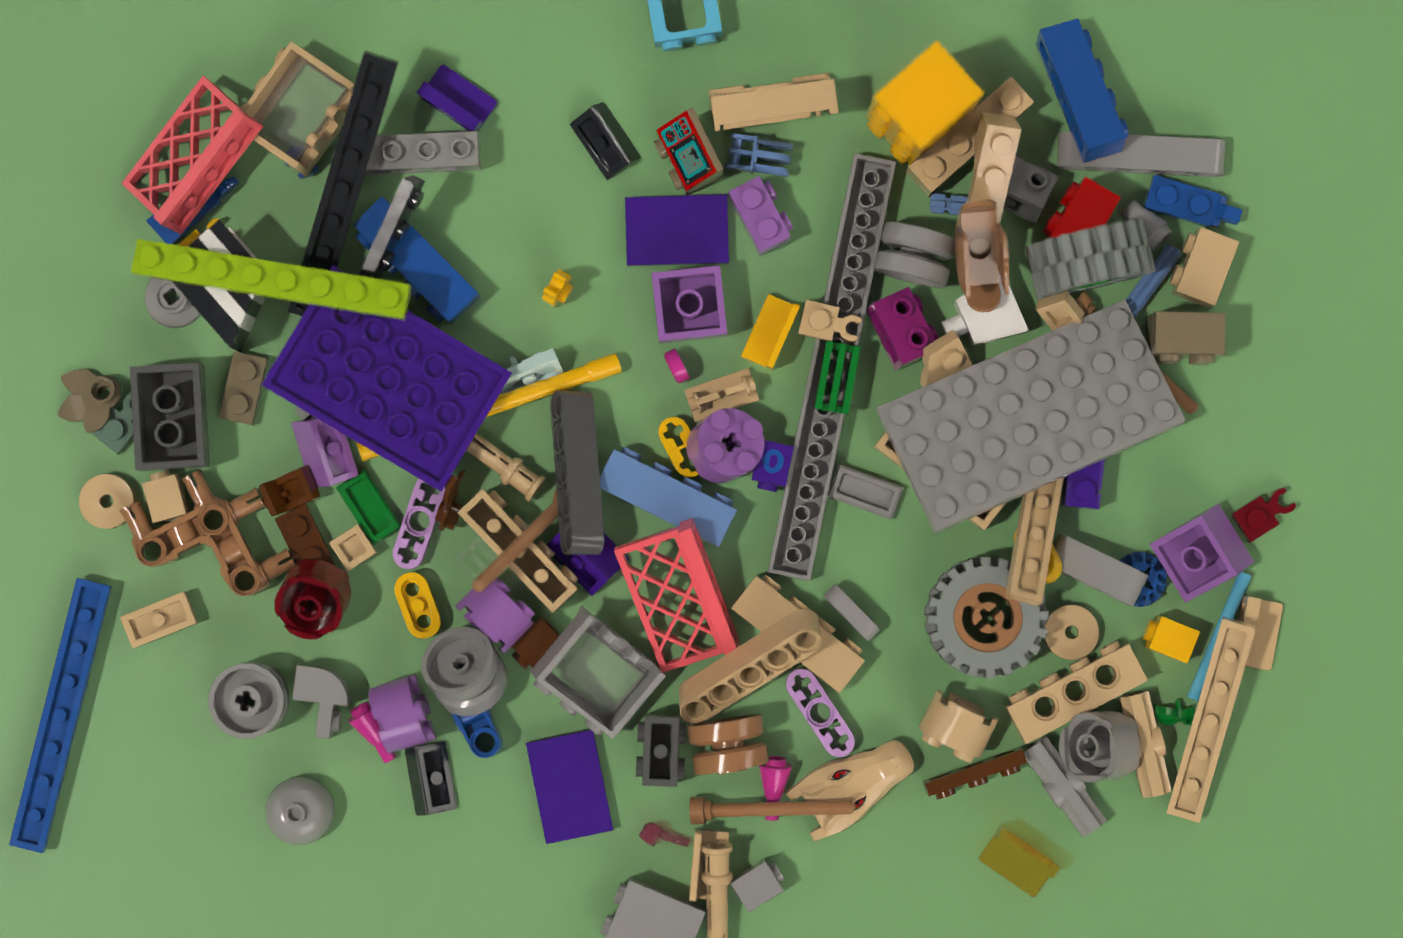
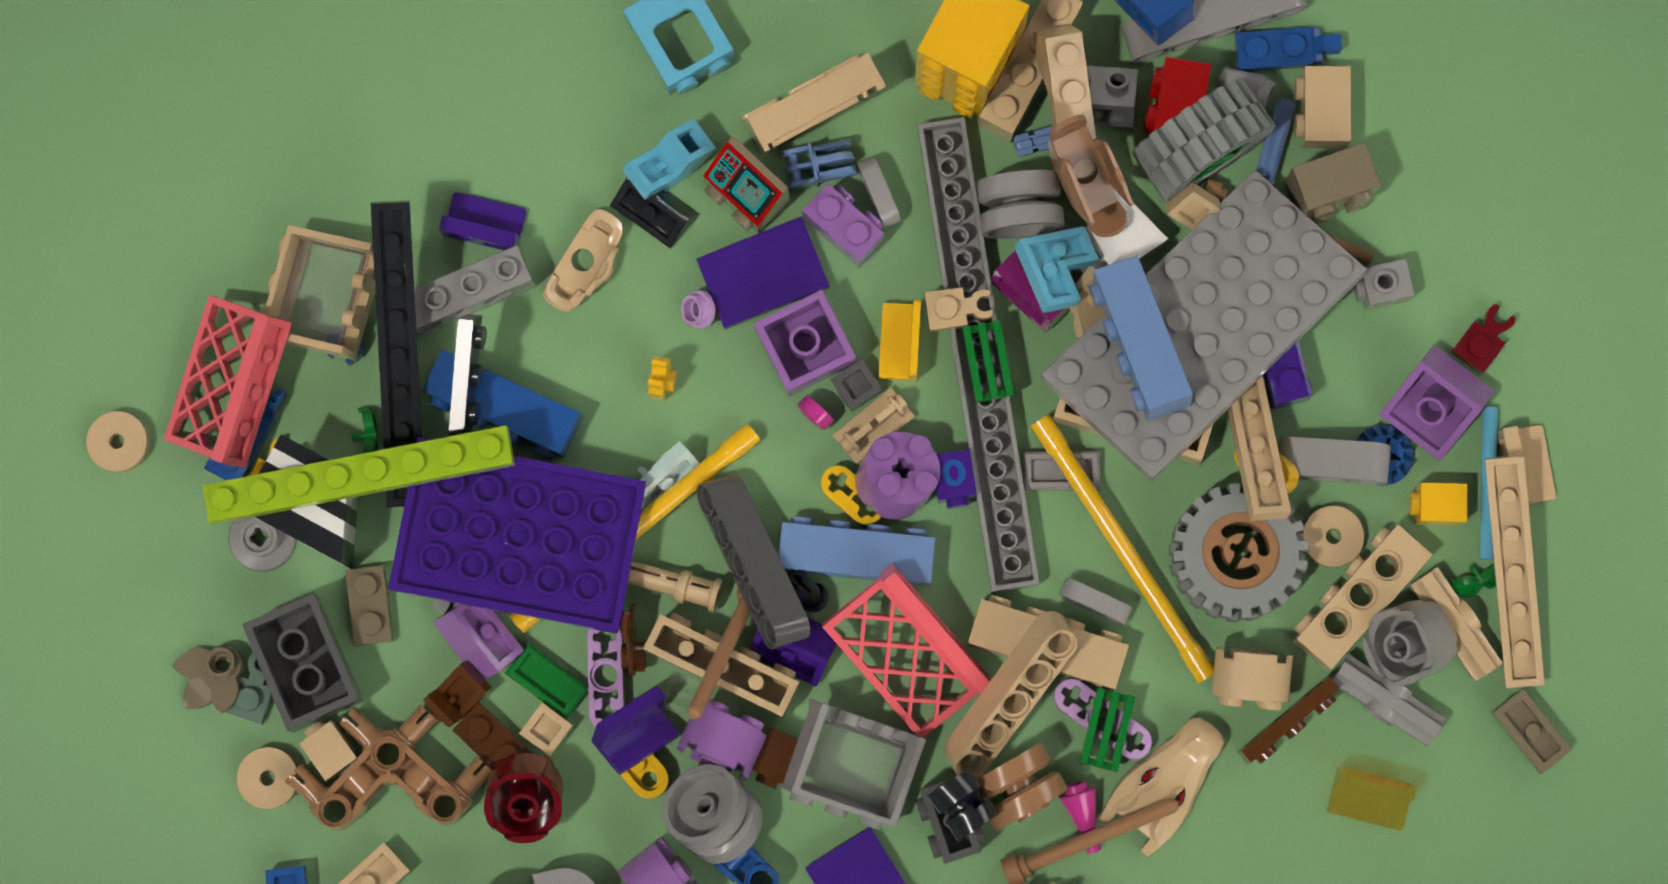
camera: 15 degrees left, 5 degrees down
(66, 171) = (103, 432): none -> tan piece
(297, 243) = (370, 428): none -> green piece
(425, 578) = (635, 731): none -> dark purple panel
(510, 180) = (598, 236): none -> tan piece
(610, 241) = (698, 309): none -> lavender plate
(615, 518) = (811, 595): none -> black pin
(633, 106) = (671, 160): none -> medium azure brick
(674, 744) = (963, 804): none -> black wheel
(720, 355) = (856, 385): none -> dark grey plate
(800, 198) = (878, 191): none -> light grey beam
(803, 748) = (1114, 698): none -> green tile
(914, 681) = (1189, 649): none -> yellow piece
(917, 316) = (1048, 262): none -> medium azure plate
(971, 409) = (1141, 338): none -> medium blue brick
(1173, 856) = (1531, 731): none -> dark tan plate
(1196, 437) = (1385, 285): none -> light grey brick

